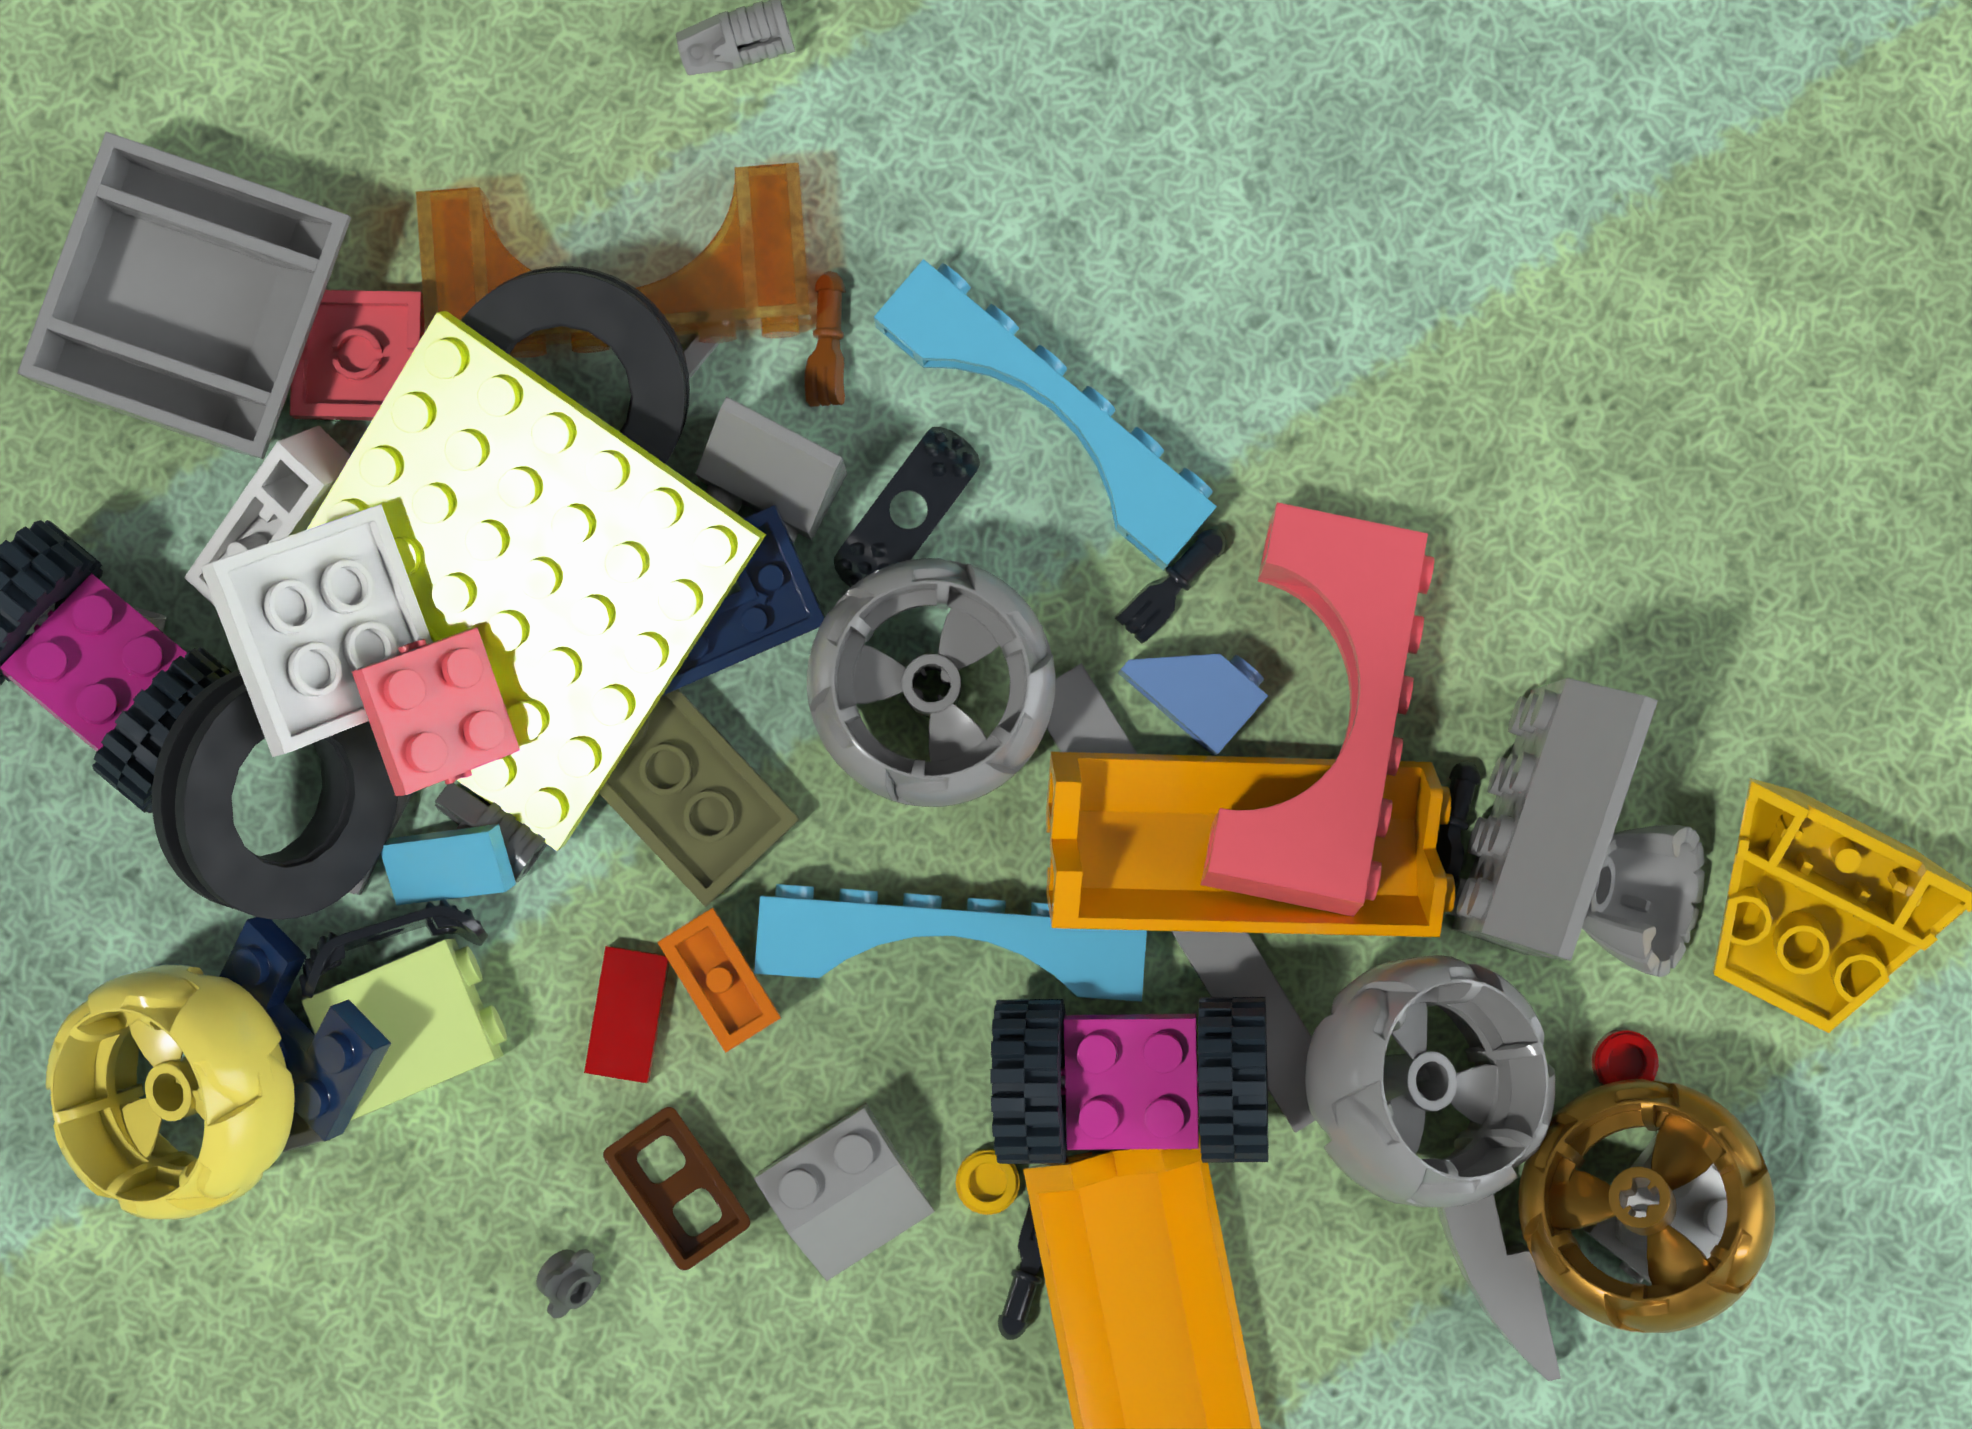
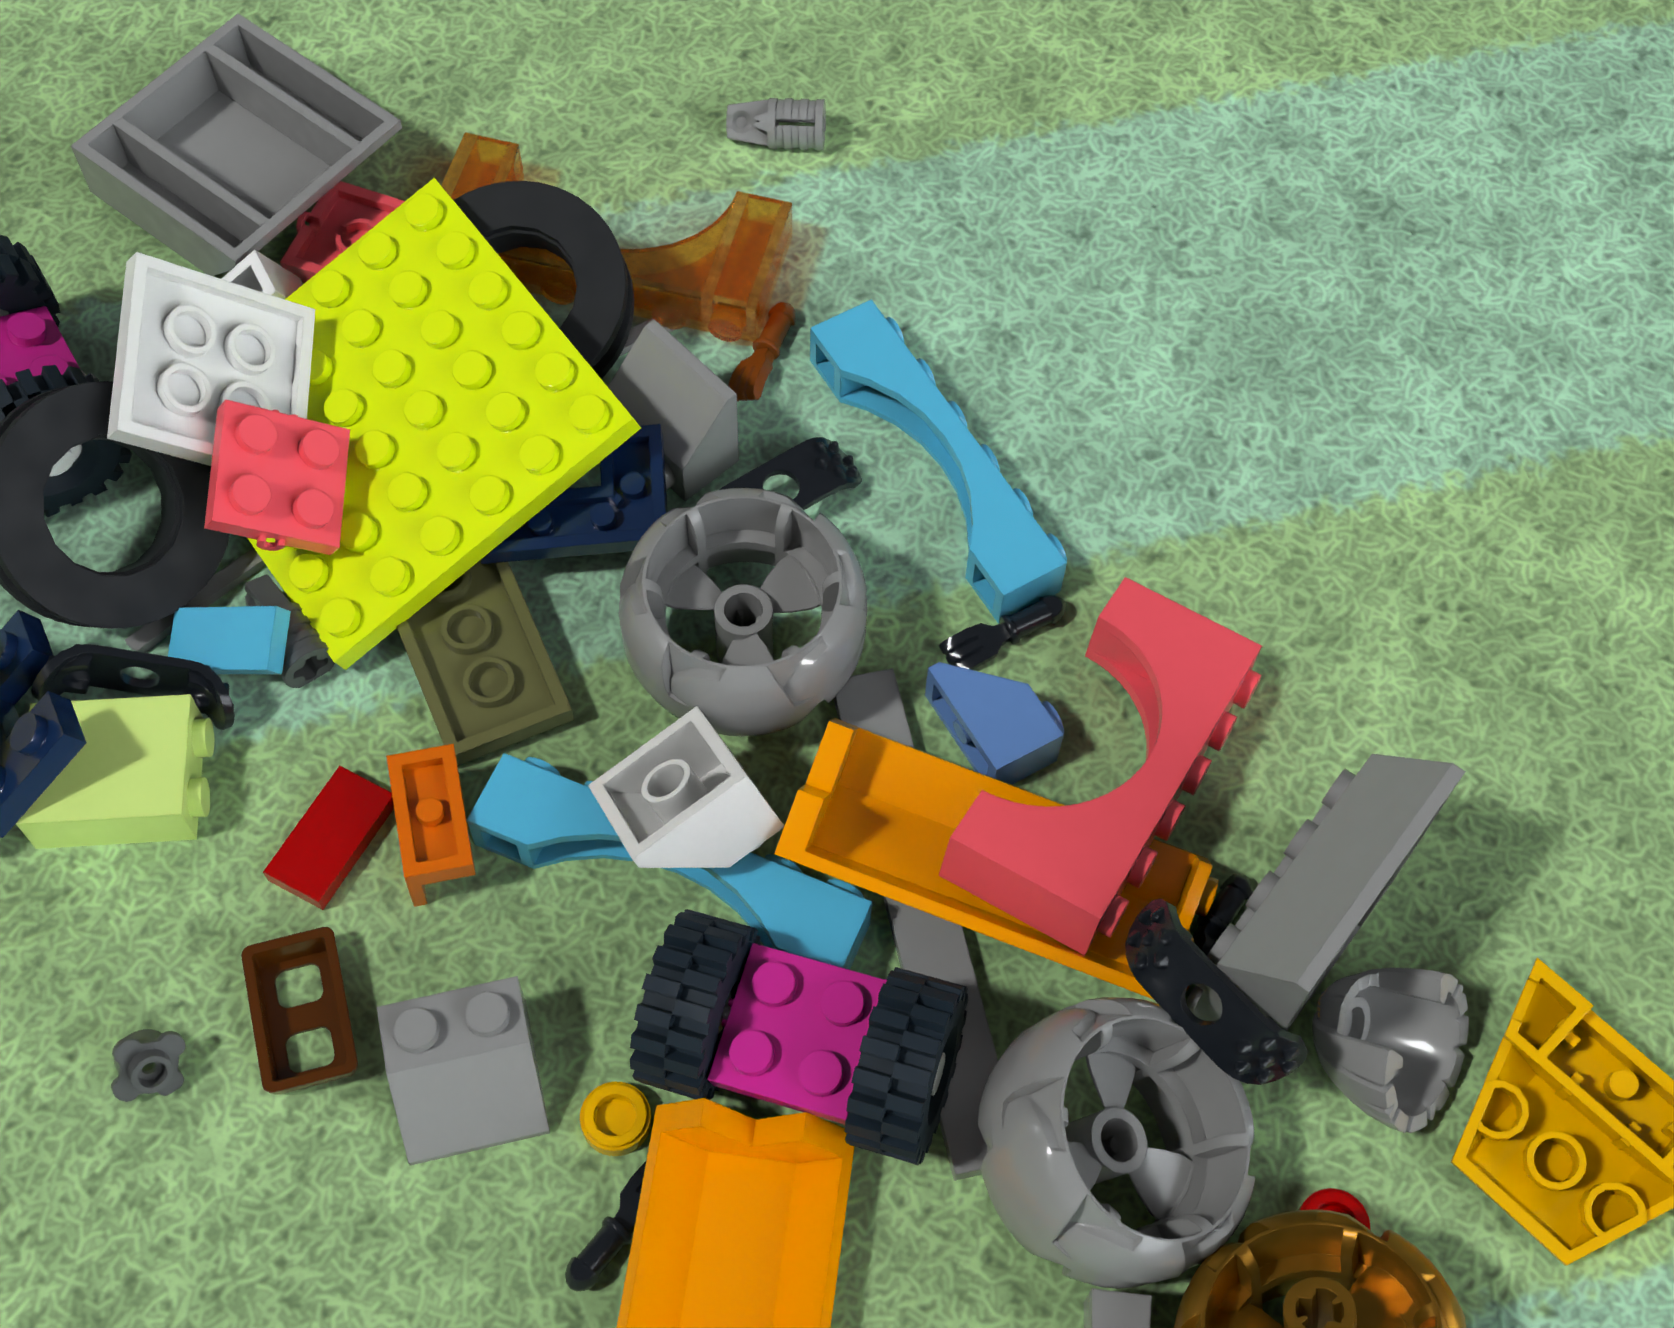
camera: 20 degrees right, 25 degrees down
(950, 899) = (685, 800): none -> white slope
(1438, 937) = (1238, 1042): none -> black piece

